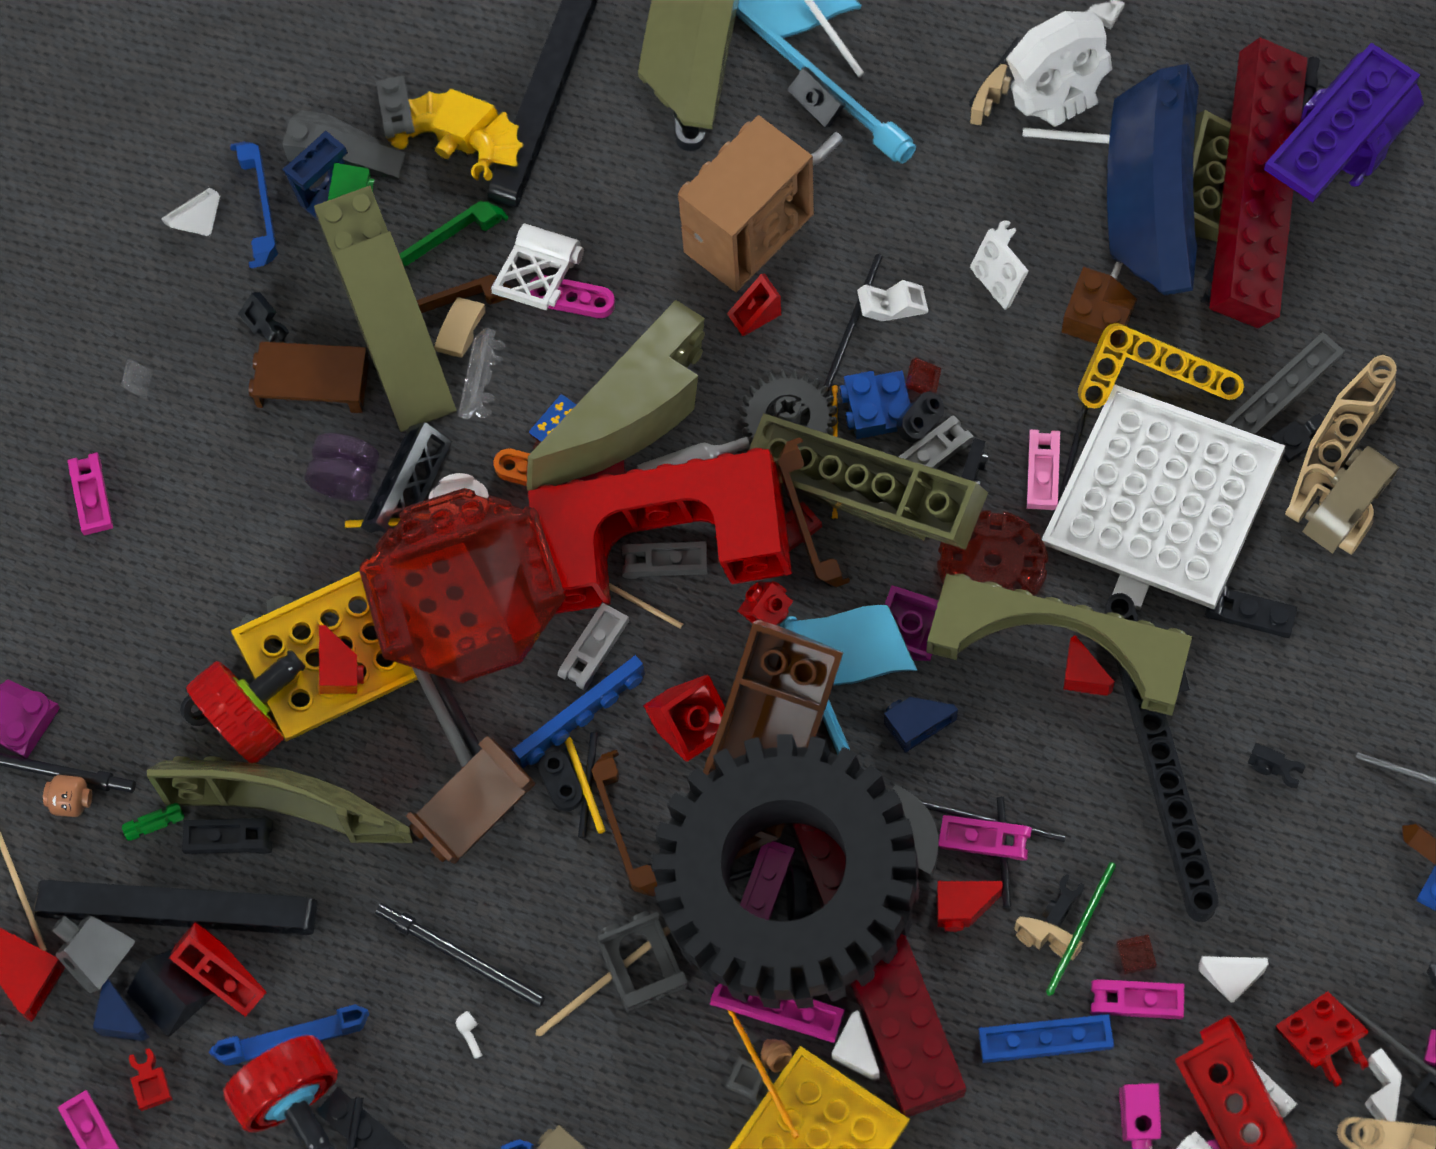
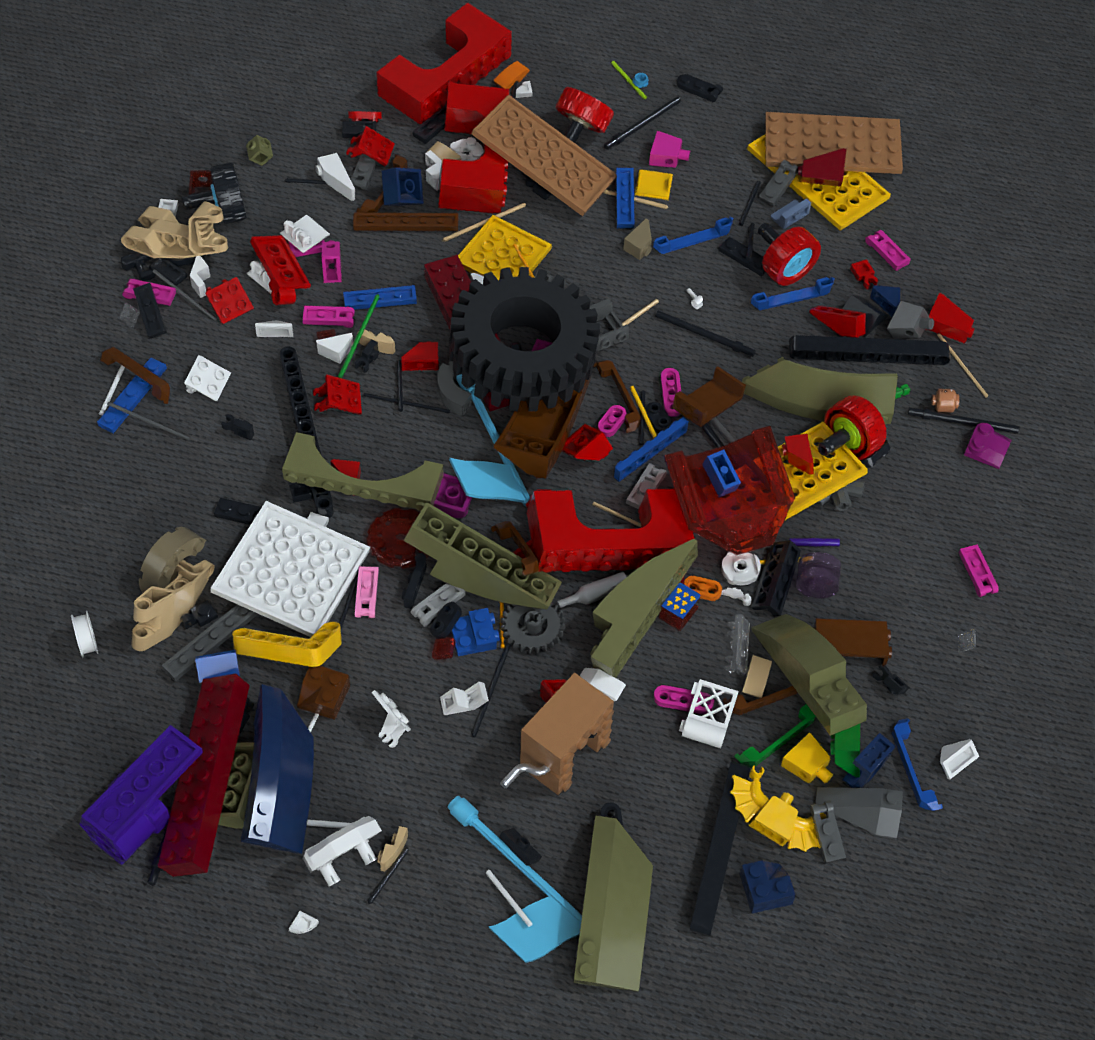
camera: 170 degrees right, 10 degrees down
(335, 549) = (815, 542): none -> dark purple piece
(406, 205) = (808, 760): none -> yellow torso
(471, 465) = (734, 593): none -> white piece
(471, 615) = (721, 473): none -> blue brick
(487, 42) = (766, 886): none -> dark blue slope
(534, 843) = (670, 386): none -> dark pink plate
(637, 770) = (611, 422): none -> dark pink plate
(713, 325) = (603, 682): none -> white slope
(917, 720) = (448, 446): dark blue slope -> none
(983, 837) = (410, 386): dark pink plate -> none
(1102, 823) = (340, 395): none -> red plate
(1120, 923) = (335, 347): none -> white slope
(1260, 344) = (217, 664): none -> brick
(1341, 865) = (206, 378): none -> white hinge

